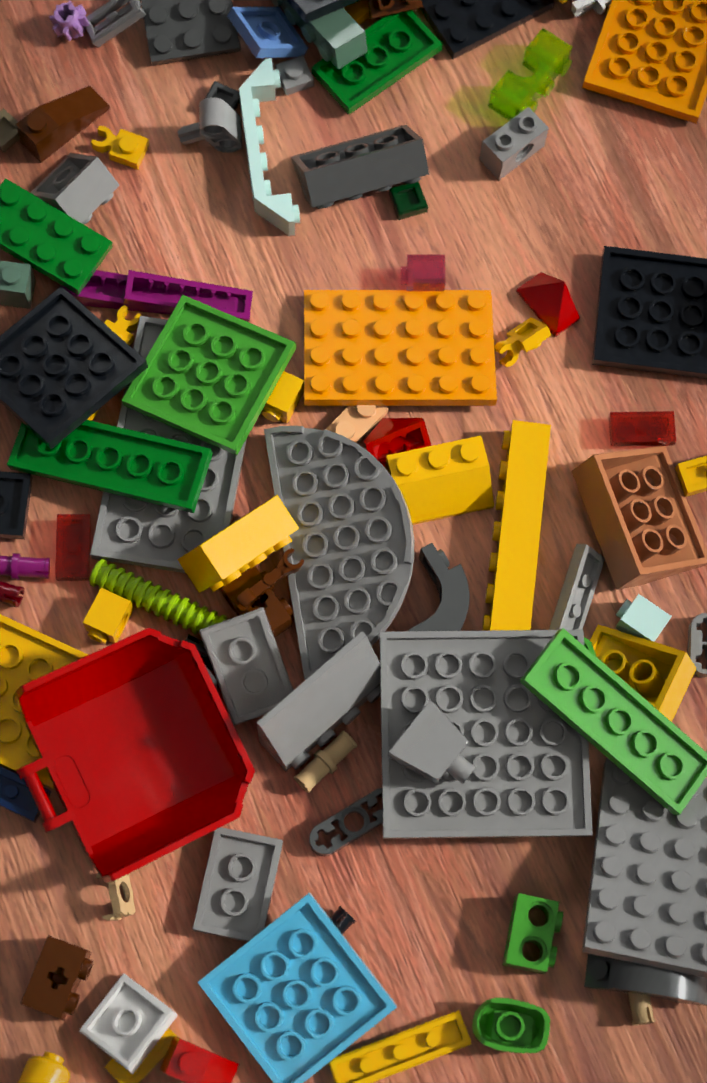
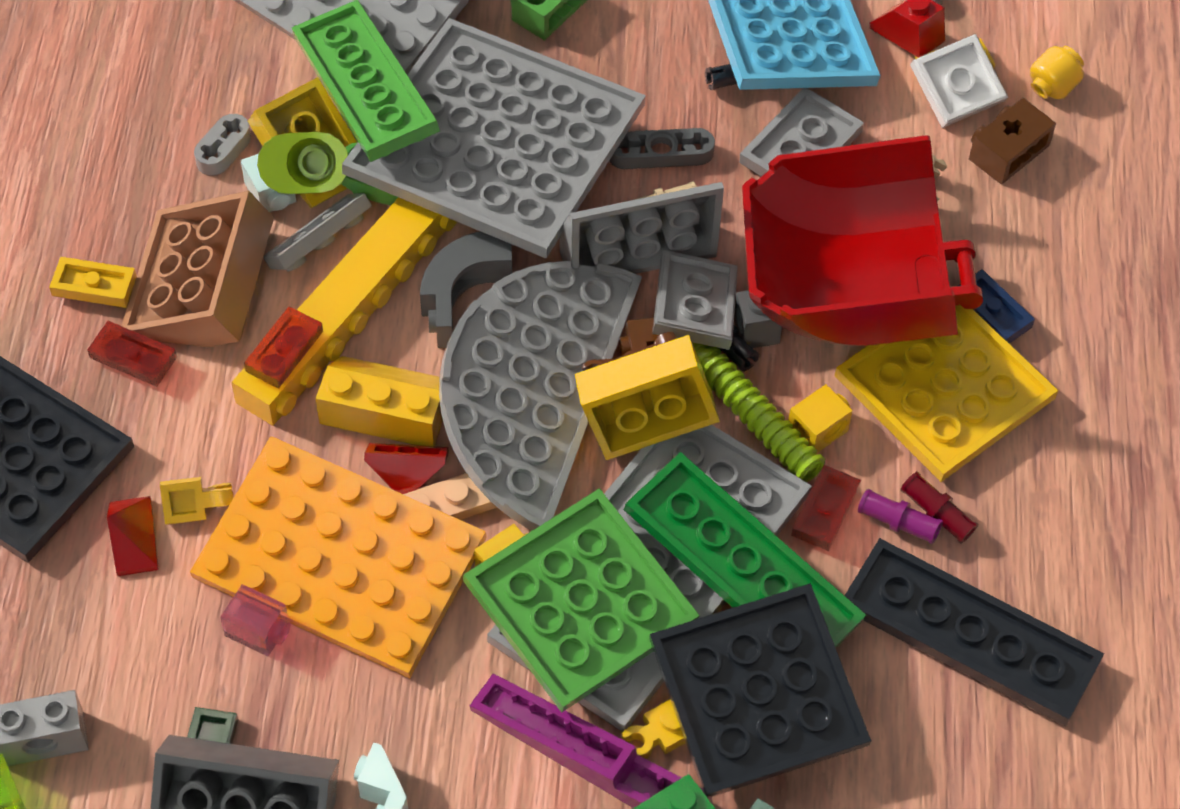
camera: 150 degrees left, 15 degrees down
(432, 747) = (559, 127): light grey torso -> none
(528, 459) = (283, 347): none -> clear red plate
(614, 628) = (302, 162): none -> lime piece

